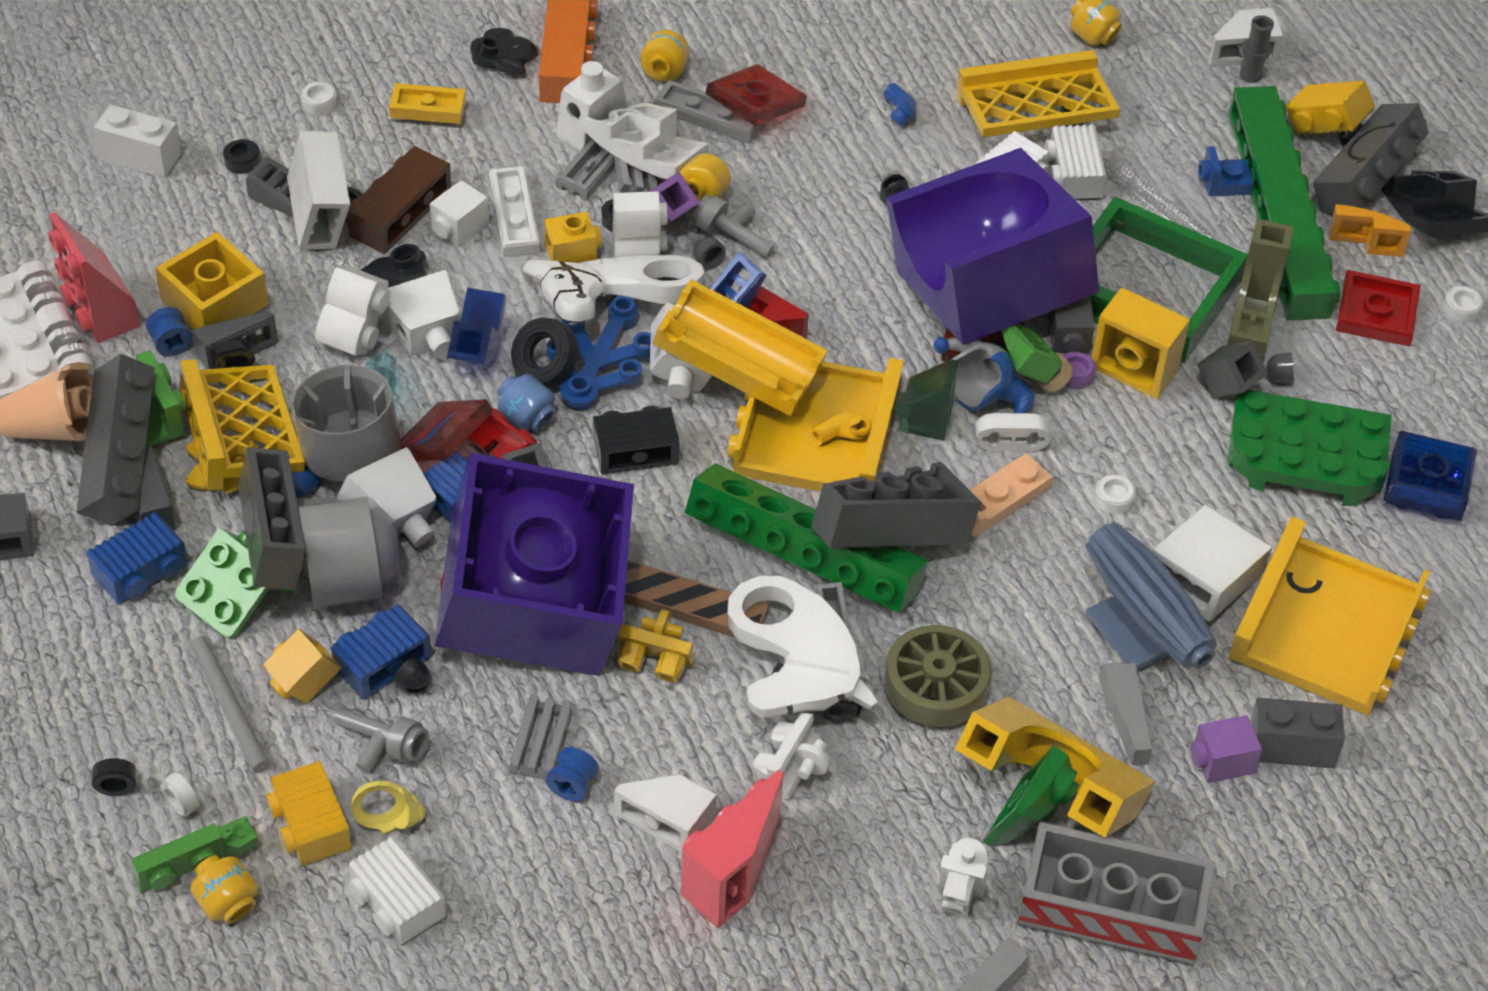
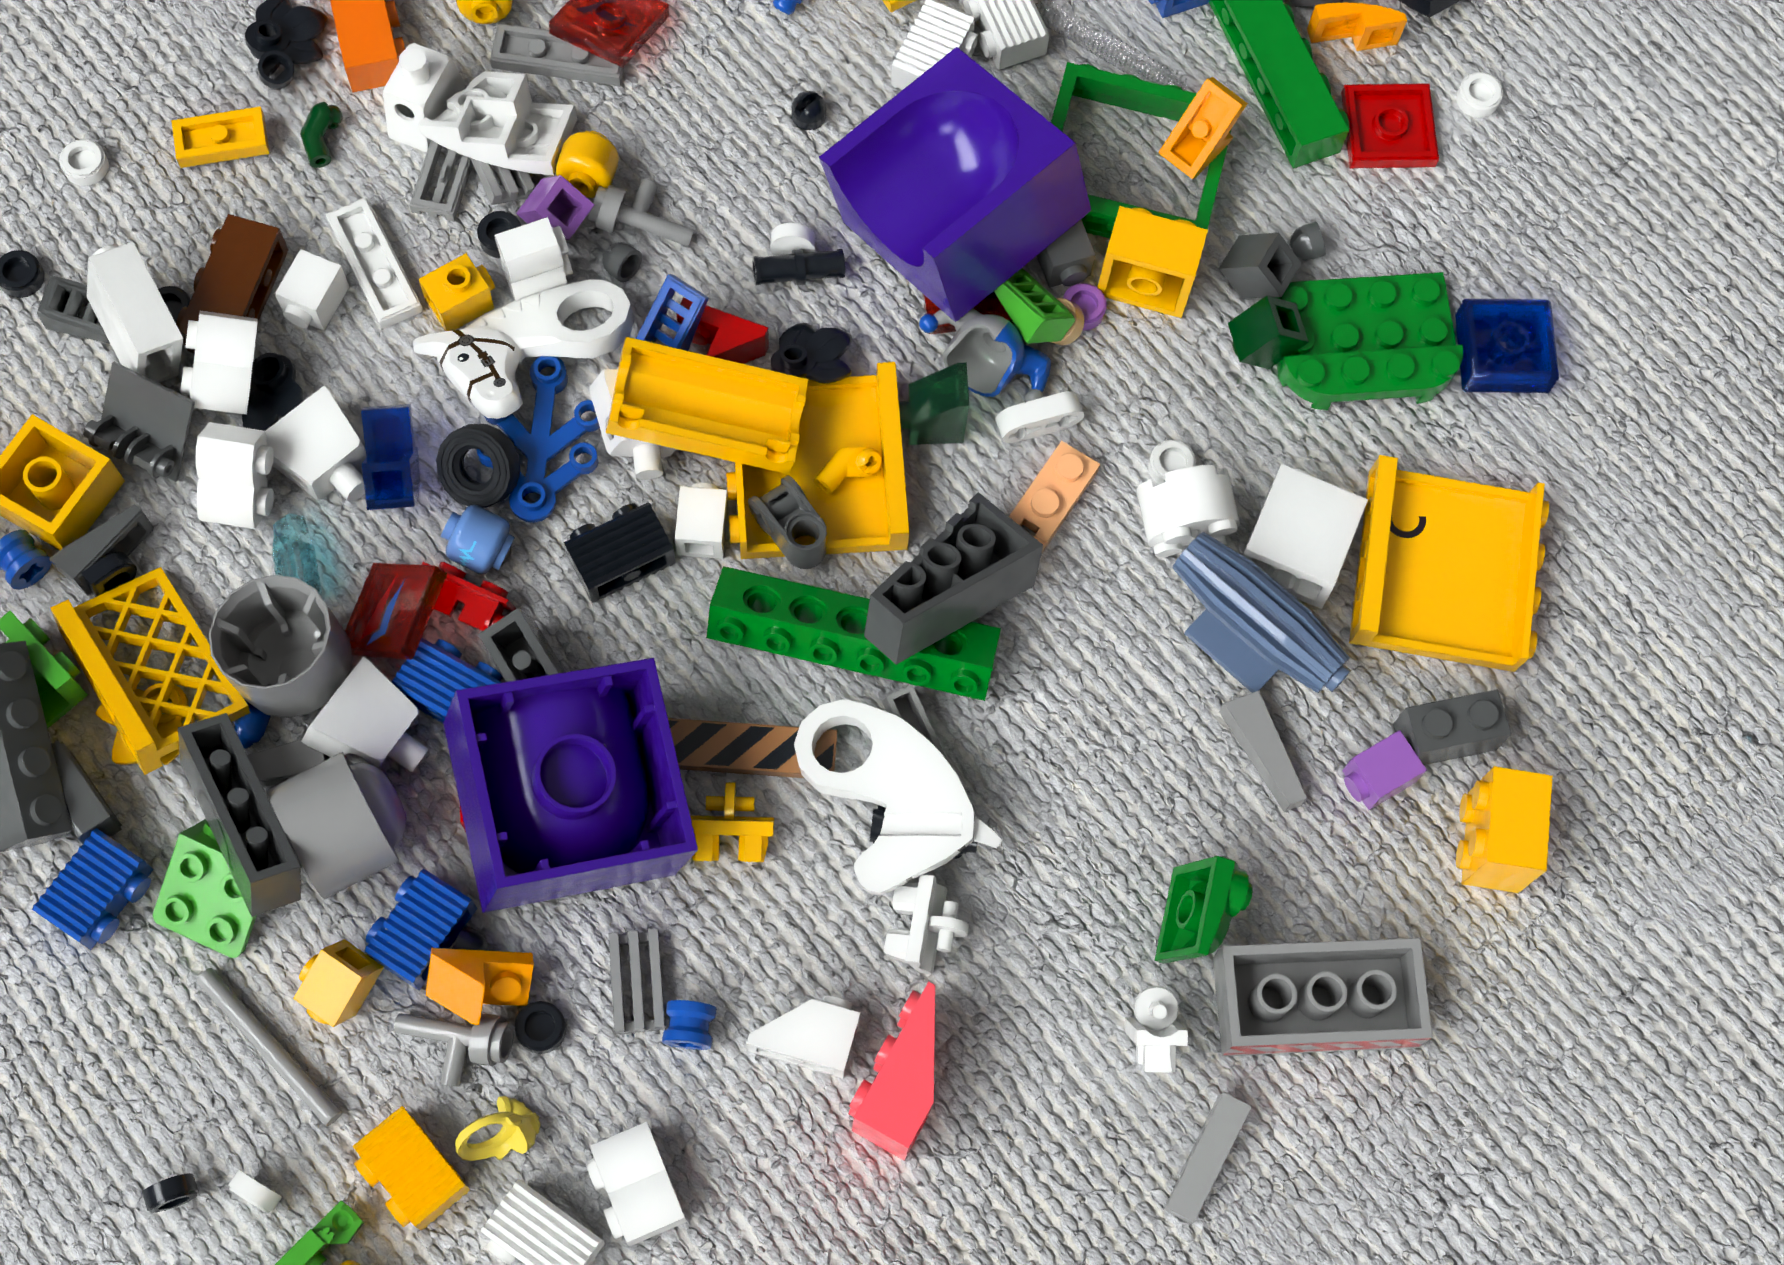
camera: 20 degrees left, 20 degrees up
(298, 263) = (142, 423): none -> dark grey hinge
(373, 232) = (221, 361): none -> white brick
(414, 692) = (470, 978): none -> light orange slope
(451, 749) = (540, 1027): none -> black tile
(483, 66) = (269, 63): none -> black hinge
(488, 875) = (636, 1185): none -> white brick
(501, 114) = (314, 129): none -> dark green arm
(708, 434) = (701, 521): none -> white brick
(781, 450) = (788, 515): none -> dark grey piece
(842, 345) = (812, 353): none -> black plate
(849, 287) = (798, 267): none -> black pin
(850, 269) = (792, 237): none -> white tile
(938, 664) = (1051, 770): olive wheel -> none
(1012, 733) = (1277, 860): yellow arch -> none
(1118, 500) = (1185, 506): none -> white brick
(1208, 258) = (1203, 128): none -> light orange slope
(1223, 414) = (1267, 332): none -> dark green brick
(1260, 284) = (1261, 149): olive arch -> none
(1316, 809) = (1505, 830): none -> yellow brick

